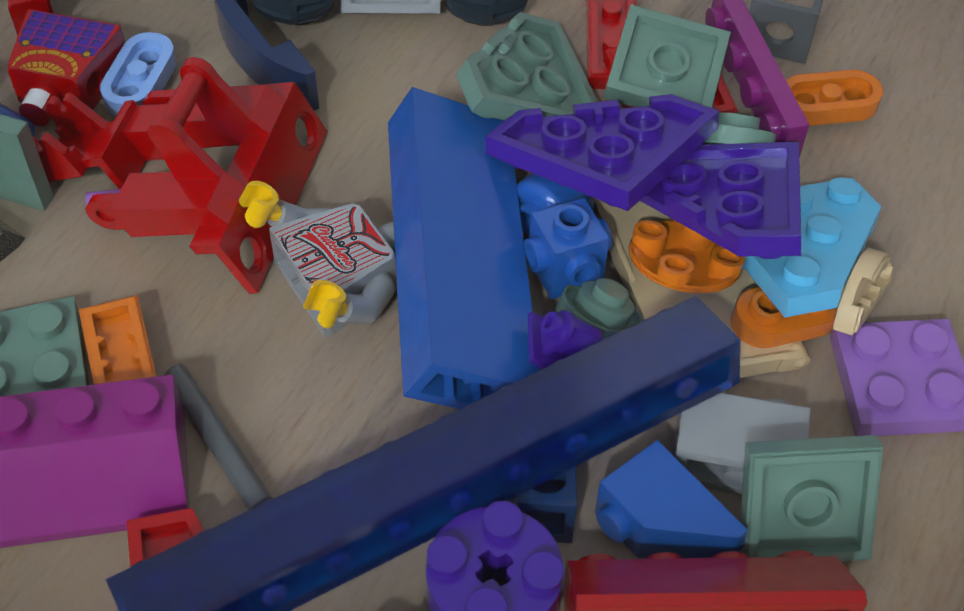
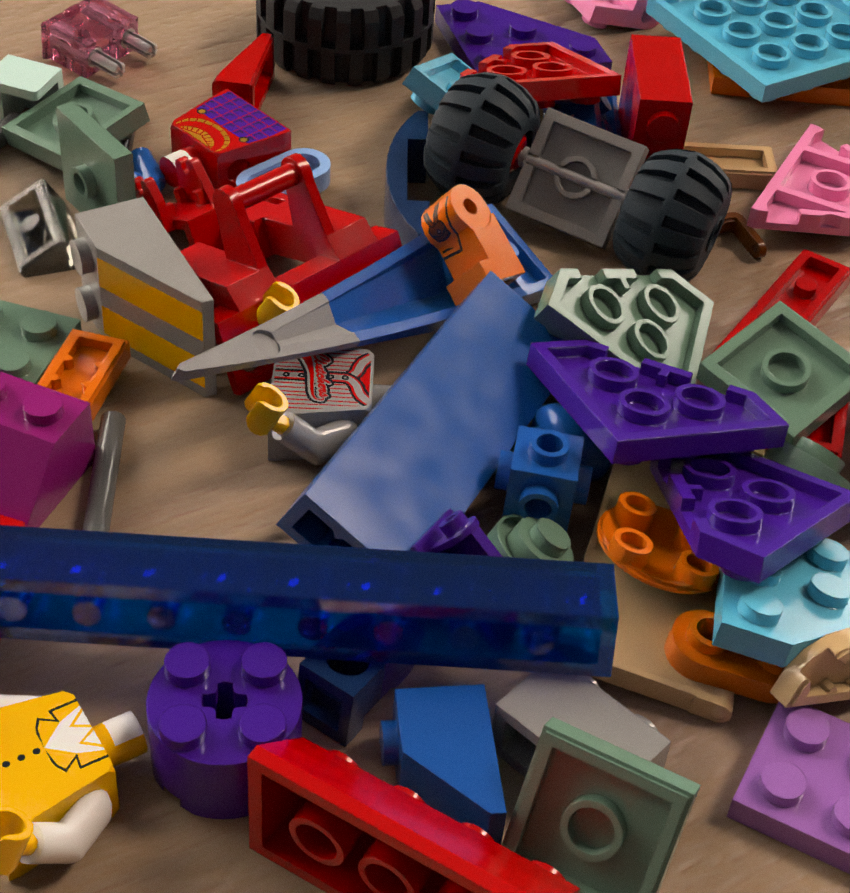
camera: 30 degrees right, 10 degrees down
(128, 244) = (142, 288): none -> light grey slope
(339, 141) = (381, 303): none -> blue plate
(365, 67) = (469, 241): none -> orange leg

